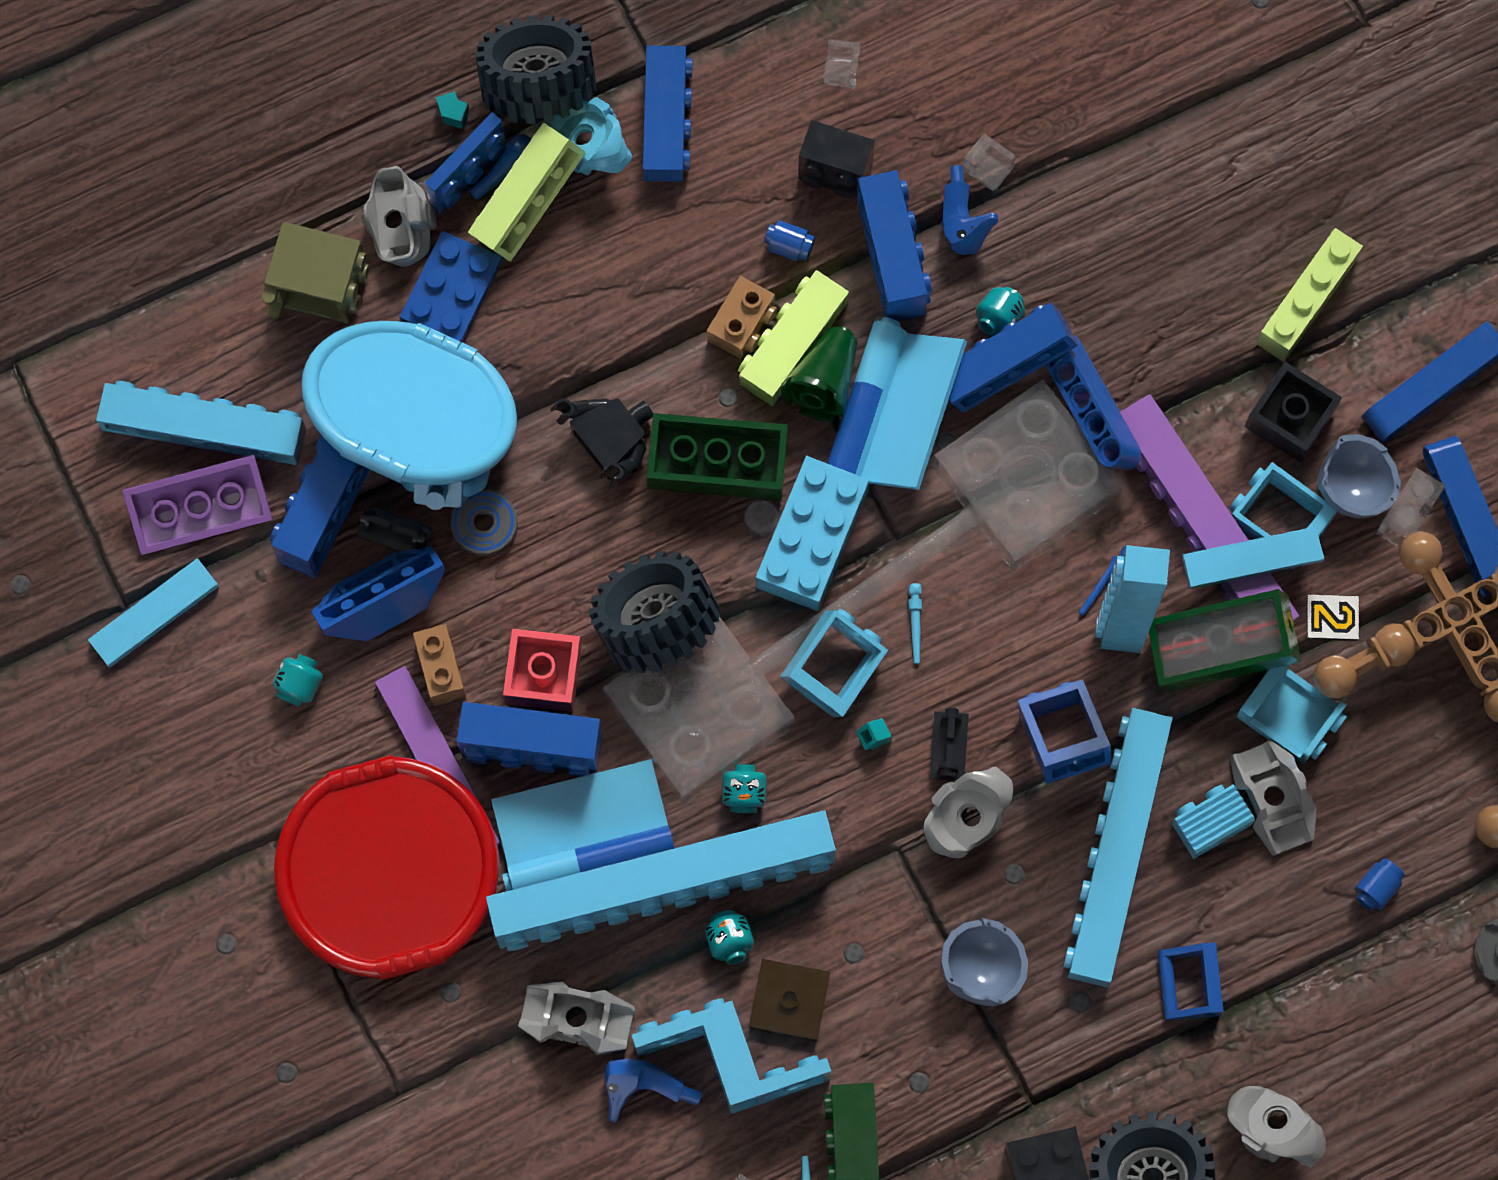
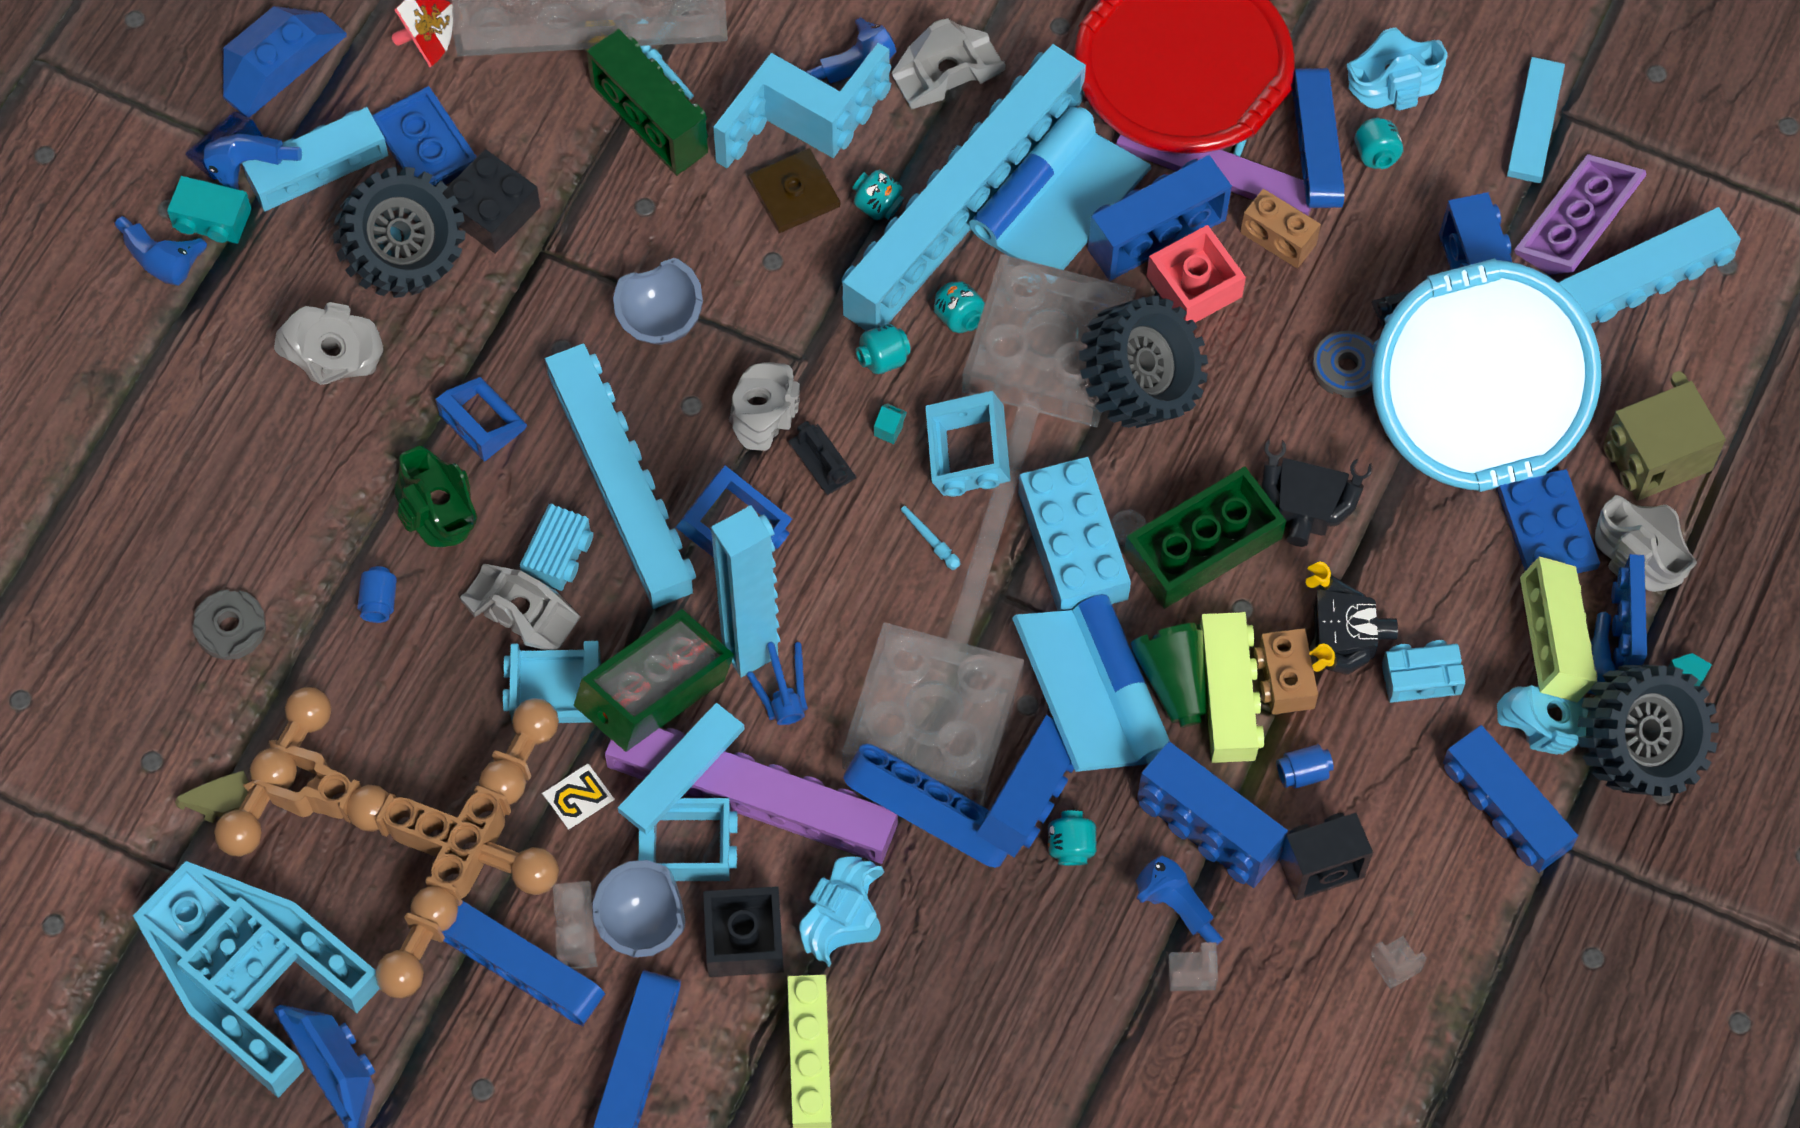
camera: 140 degrees right, 10 degrees down
(199, 723) = (1413, 71): none -> medium azure piece
(342, 717) = (1318, 138): none -> blue beam
(381, 595) = (1378, 239): blue wedge -> none
(643, 245) = (1423, 671): none -> medium azure brick
(673, 315) = (1345, 624): none -> black torso
(834, 797) = (883, 349): none -> teal head
(1207, 368) = (841, 909): none -> medium azure piece
(1280, 905) = (418, 477): none -> dark green piece

